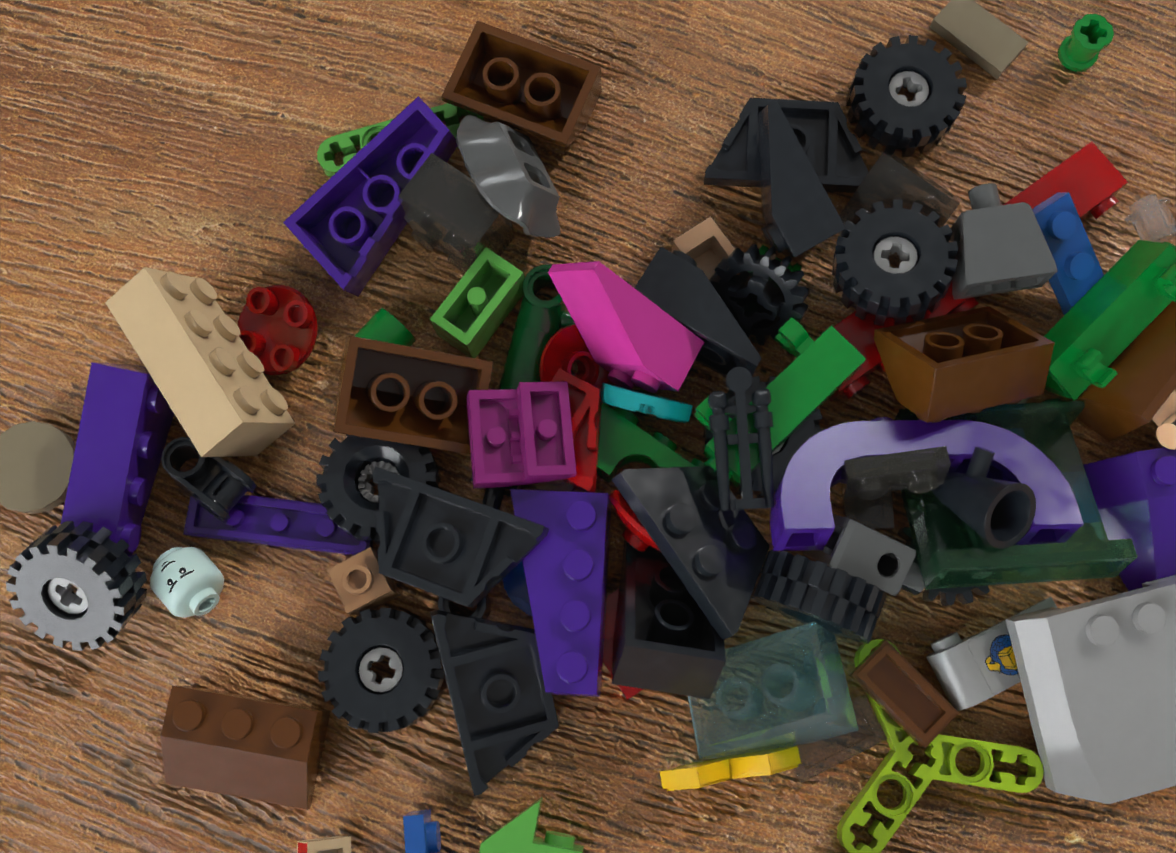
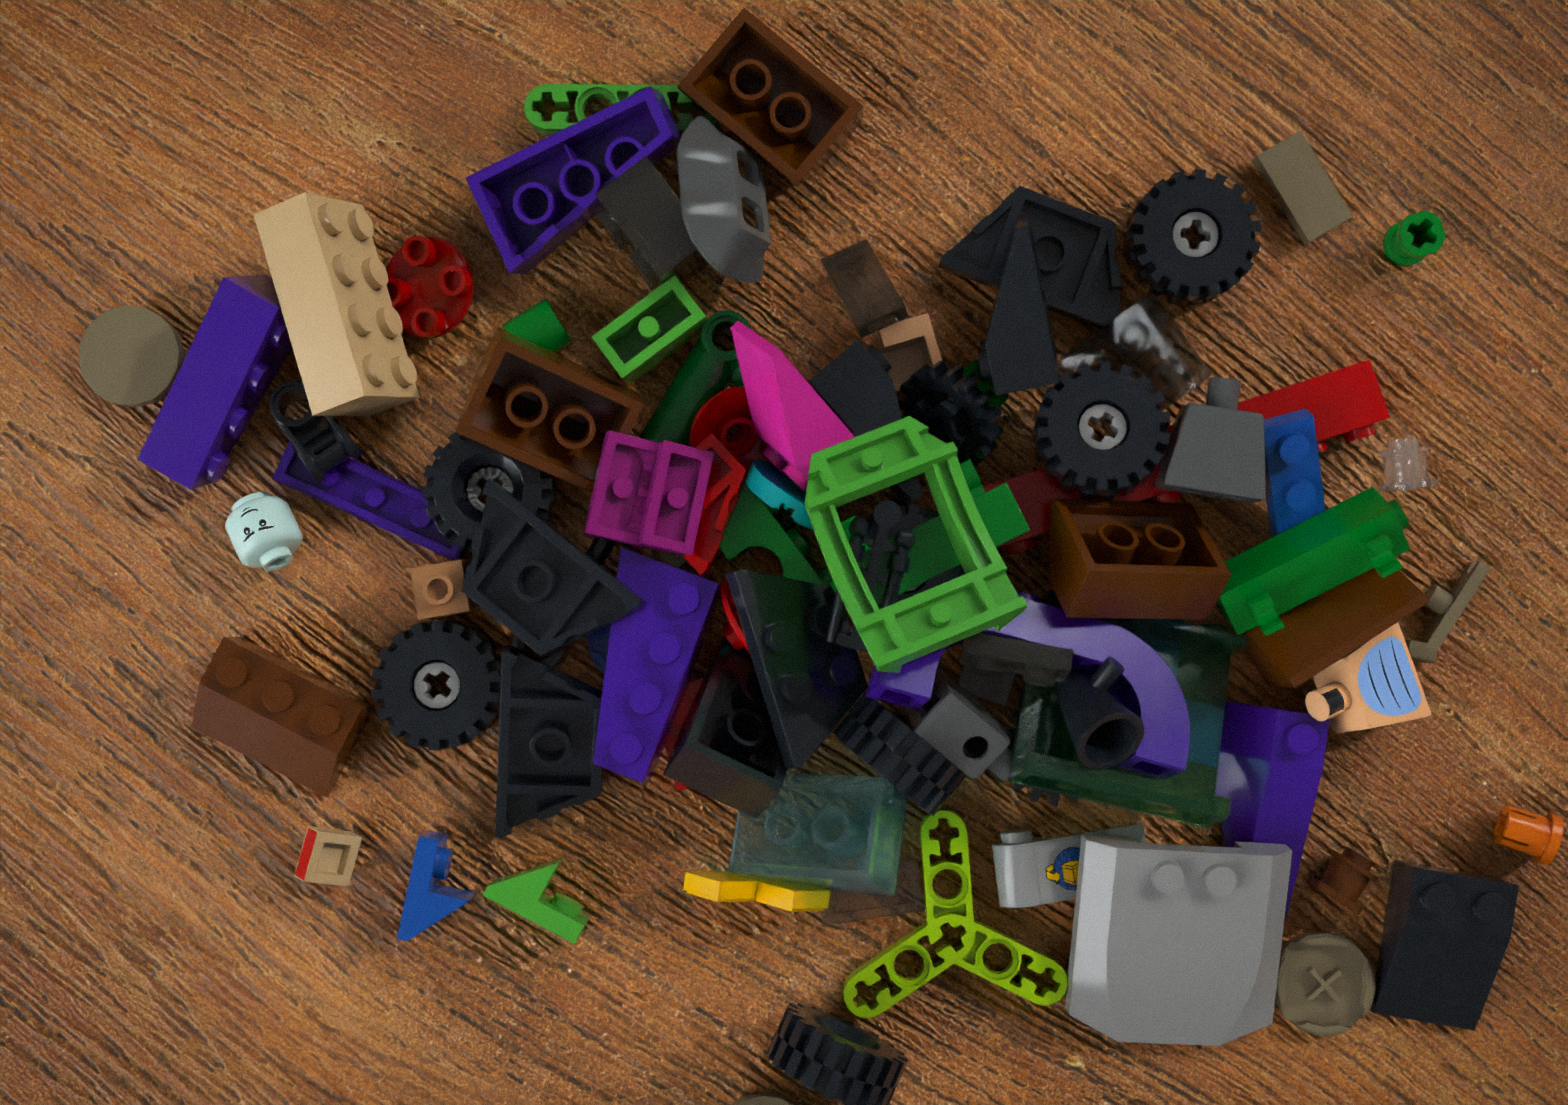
camera: 15 degrees right, 10 degrees up
(99, 568) = (174, 489): bush -> none
(649, 215) = (864, 288): none -> clear smoke tile
(815, 450) = (942, 613): none -> bright green wedge
(904, 694) = (954, 873): reddish brown tile -> none

